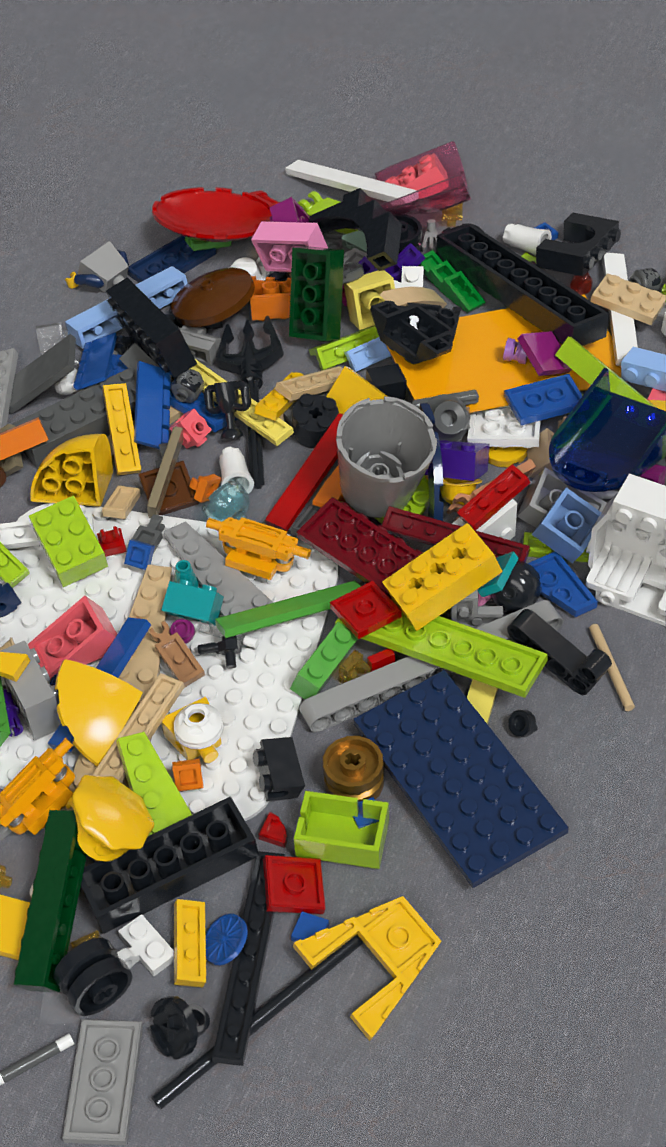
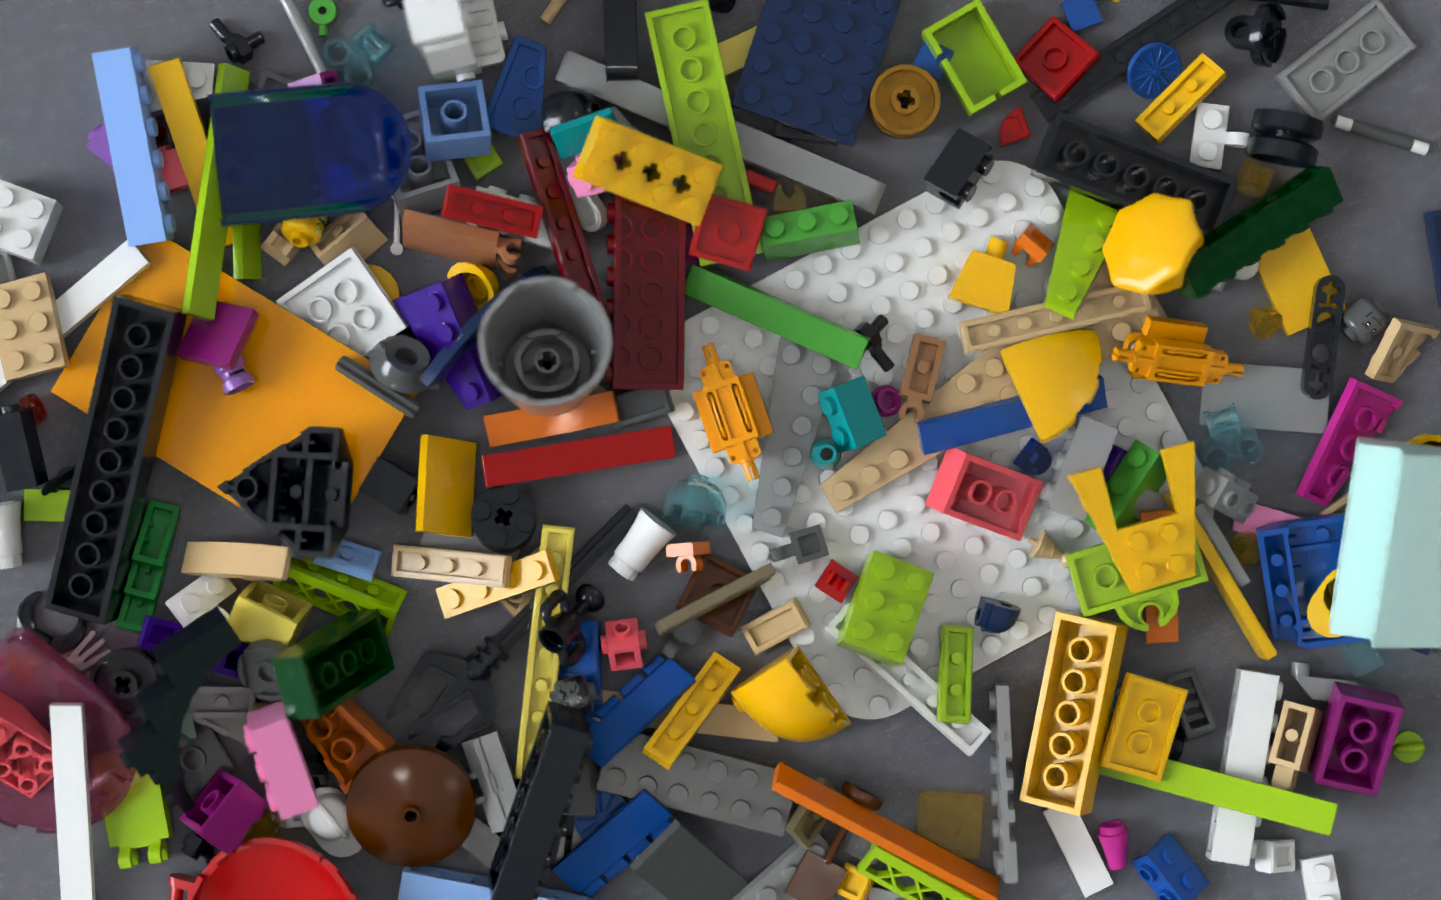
camera: 135 degrees left, 40 degrees up
(139, 554) = (833, 531): blue tile -> none
(198, 734) = (971, 274): white piece -> none
(543, 399) = (281, 289): blue tile -> none

